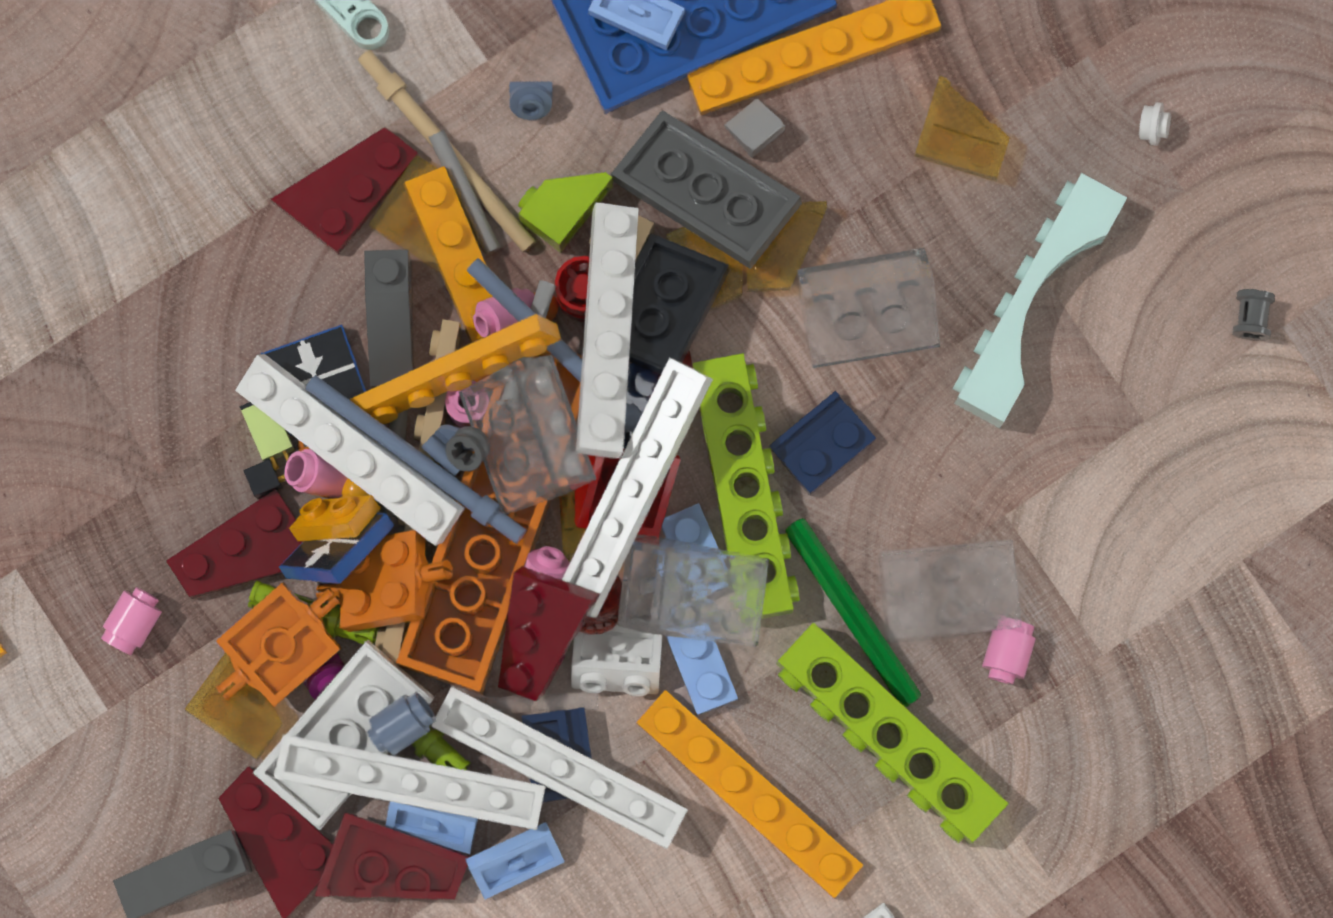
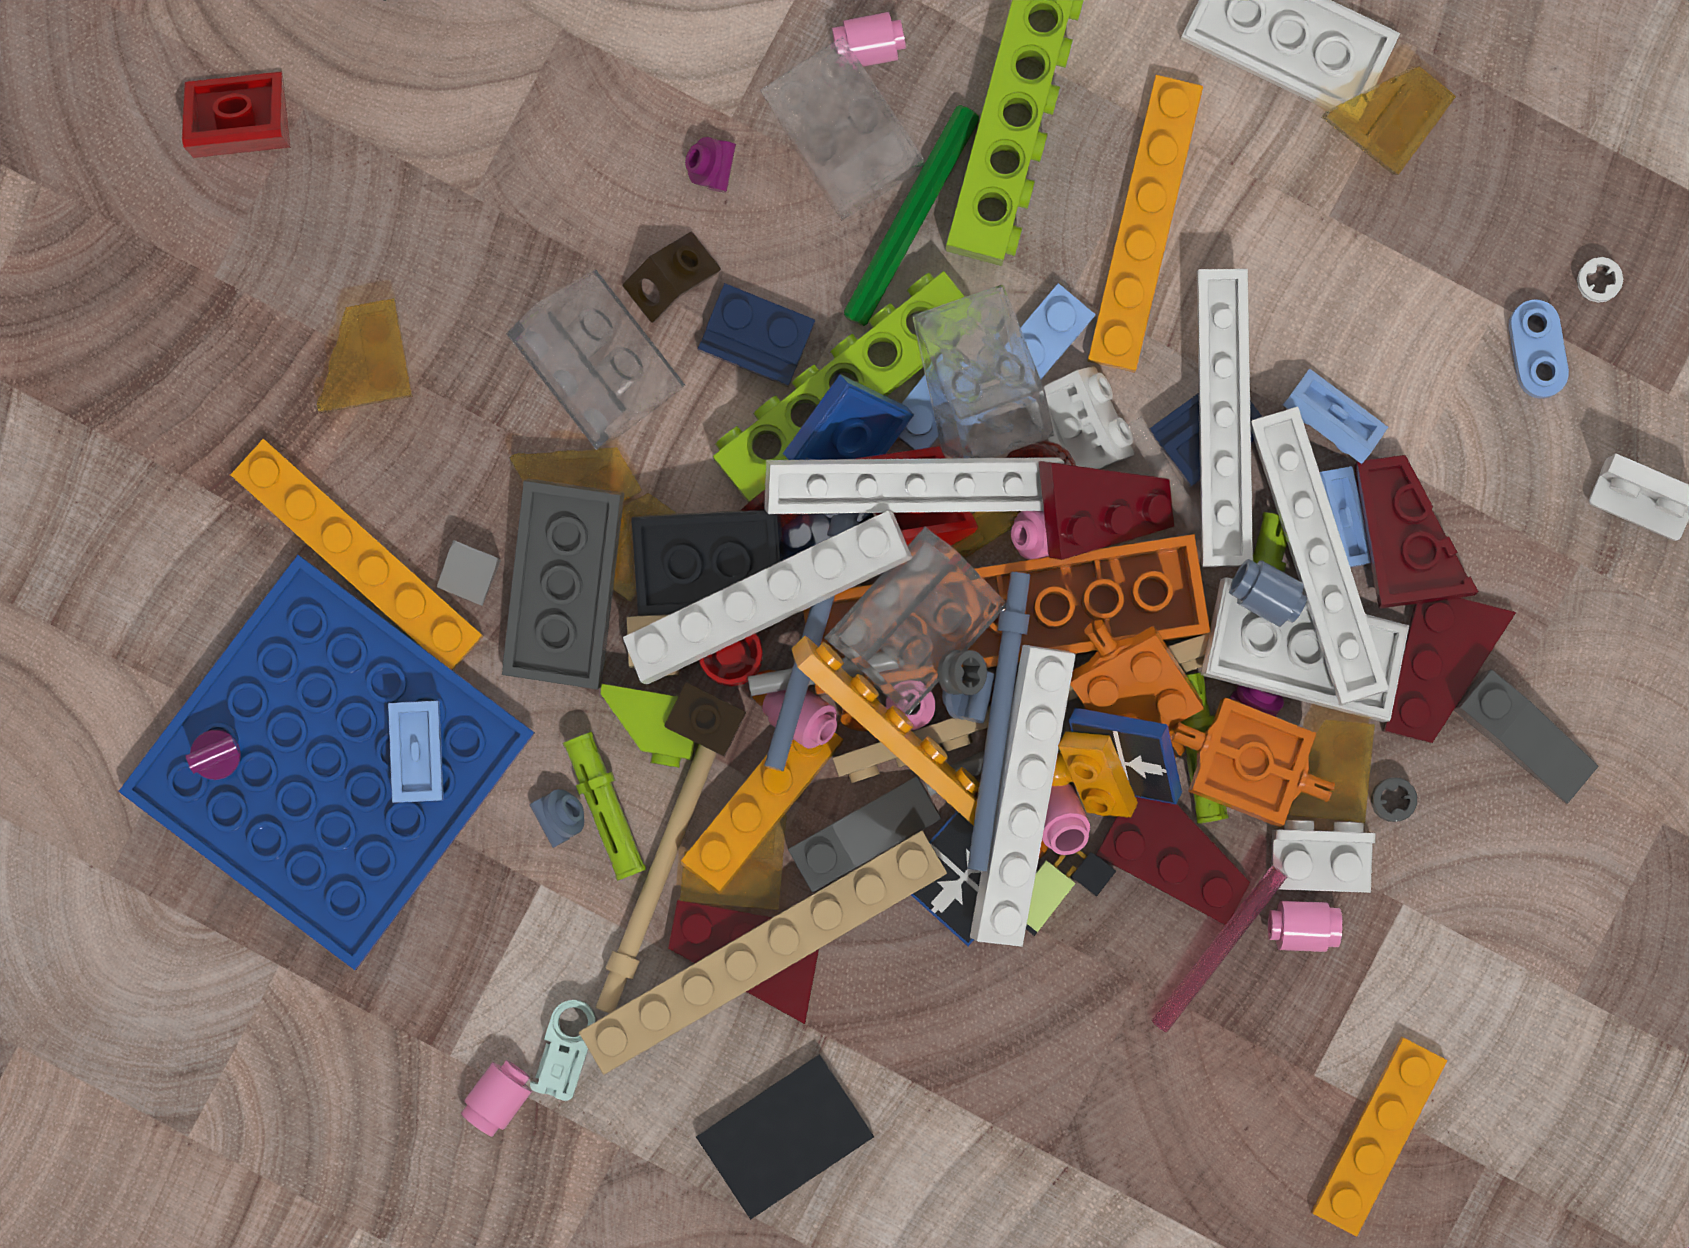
camera: 120 degrees left, 5 degrees up
(151, 545) = (1219, 948): none -> clear pink piece
(176, 663) = (1323, 858): none -> white bracket
(178, 741) = (1396, 814): none -> dark grey bush
(194, 141) = (785, 1136): none -> black tile
(340, 193) = (762, 952): none -> tan plate
(464, 192) = (693, 829): light grey bar -> none
(528, 136) = (604, 805): none -> lime pin
(541, 241) = (705, 719): none -> dark brown bracket
(709, 467) = (849, 424): none -> blue tile
(904, 402) = (674, 272): none -> dark brown bracket
(976, 477) = (710, 163): none -> magenta plate
(1081, 224) = (599, 194): light aqua arch -> none
(1154, 123) = (252, 170): white plate -> none
(1206, 132) = (235, 115): none -> red slope

